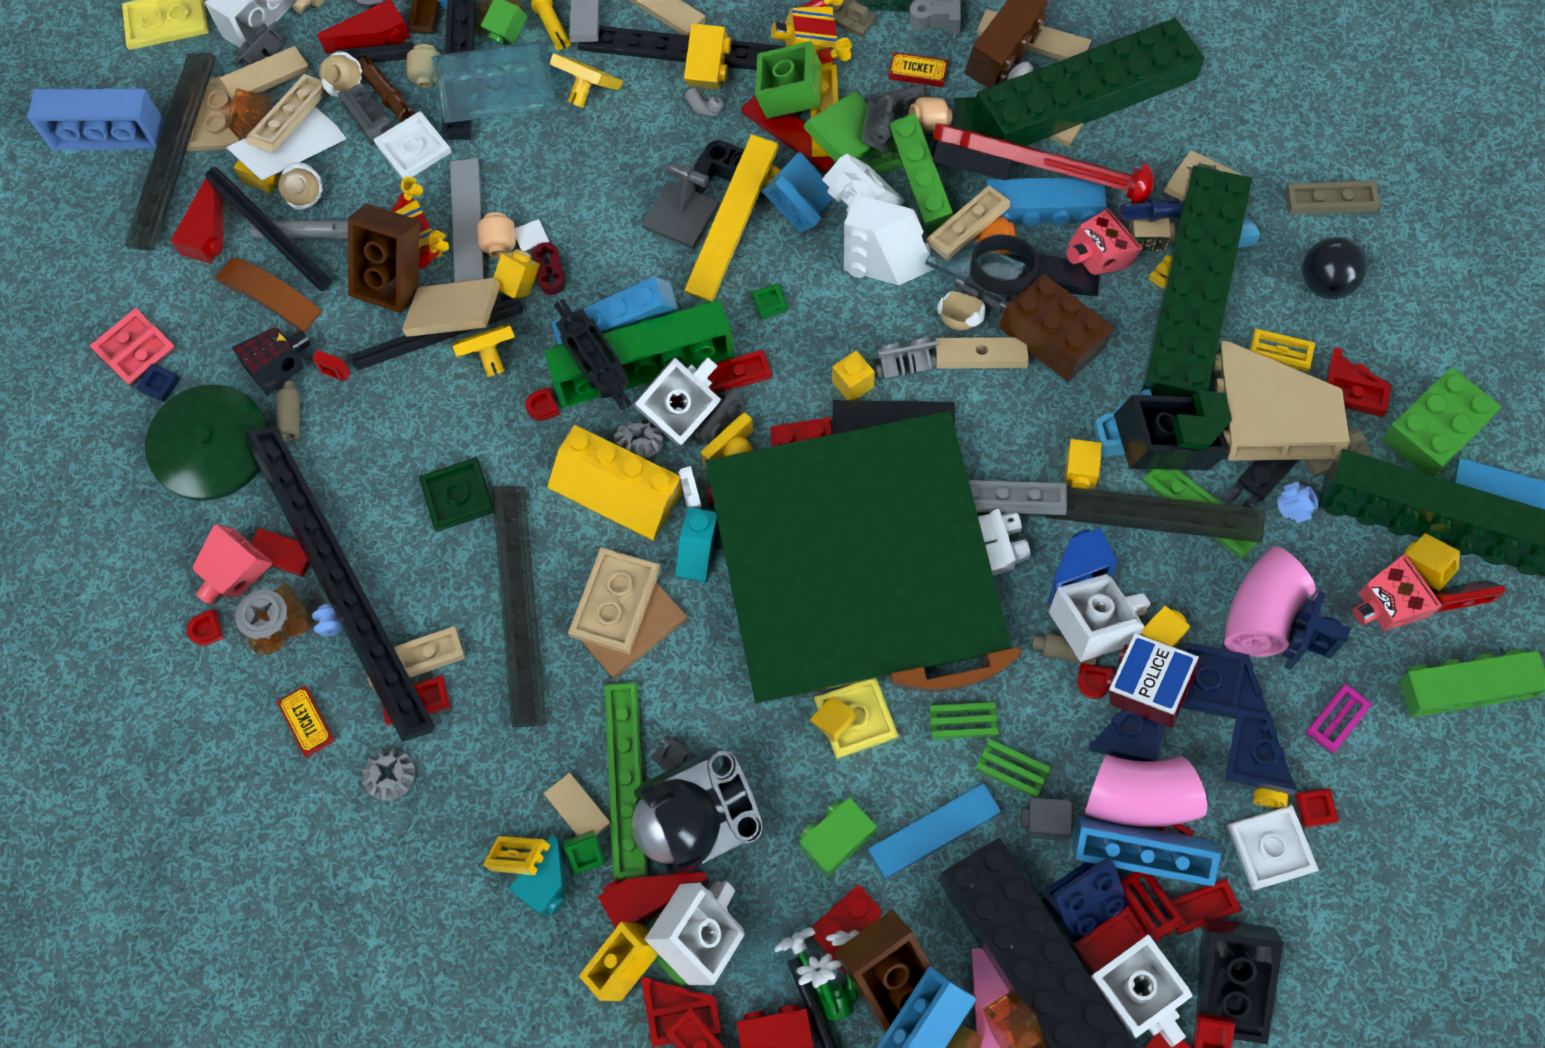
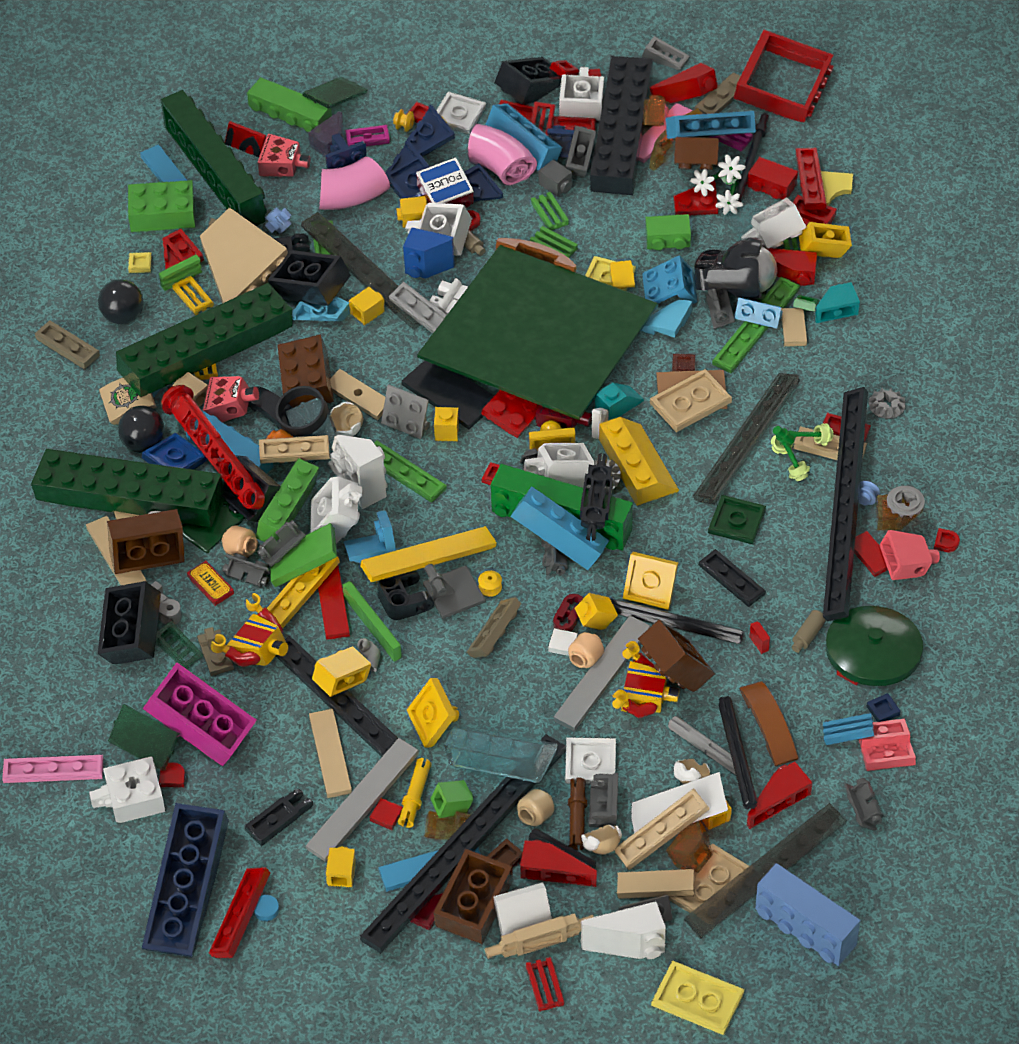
camera: 145 degrees left, 15 degrees down
(114, 264) = (867, 813): none -> dark grey hinge
(190, 309) = (848, 729): none -> dark azure tile
(272, 357) = (796, 661): black torso -> none
(305, 721) = (917, 456): tile -> none
(413, 421) = (732, 578): none -> black tile
(428, 598) = (784, 440): none -> plant
(451, 307) = (647, 603): tan tile -> none
(512, 860) = (836, 319): yellow tile -> none
(541, 405) = (643, 536): red tile -> none
(606, 200) = (494, 628): none -> dark tan plate
(614, 787) = (758, 312): none -> hinge
(650, 242) = (490, 583): none -> yellow wheel
(667, 656) = (683, 362): none -> clear red tile
(723, 125) = (372, 621): none -> bright green tile
(732, 705) = (669, 319): none -> medium azure slope
(769, 301) = (449, 505): green tile -> none
(773, 757) = (669, 280): none -> dark azure bracket
(788, 80) = (309, 604): bright green brick -> none
(852, 306) = (411, 475): none -> bright green tile
(934, 831) = (613, 210): dark azure tile -> none
(958, 966) = (660, 147): none -> clear orange slope
(1043, 864) = (580, 151): none -> dark grey slope
(1090, 146) = (174, 452): none -> blue tile
(1148, 144) = (141, 428): none -> black piece
(1151, 210) = (198, 388): dark blue axle -> none
(1203, 429) = (299, 257): dark green tile -> none
(1322, 770) = (401, 119): none -> yellow wheel
(1323, 352) = (180, 271): none -> bright green tile
(1377, 674) = (321, 136): none -> clear purple slope
(1382, 348) = (140, 262): none -> light yellow tile
(1434, 560) = (247, 154): yellow brick -> none
(1444, 745) = (334, 92): none -> clear green piece

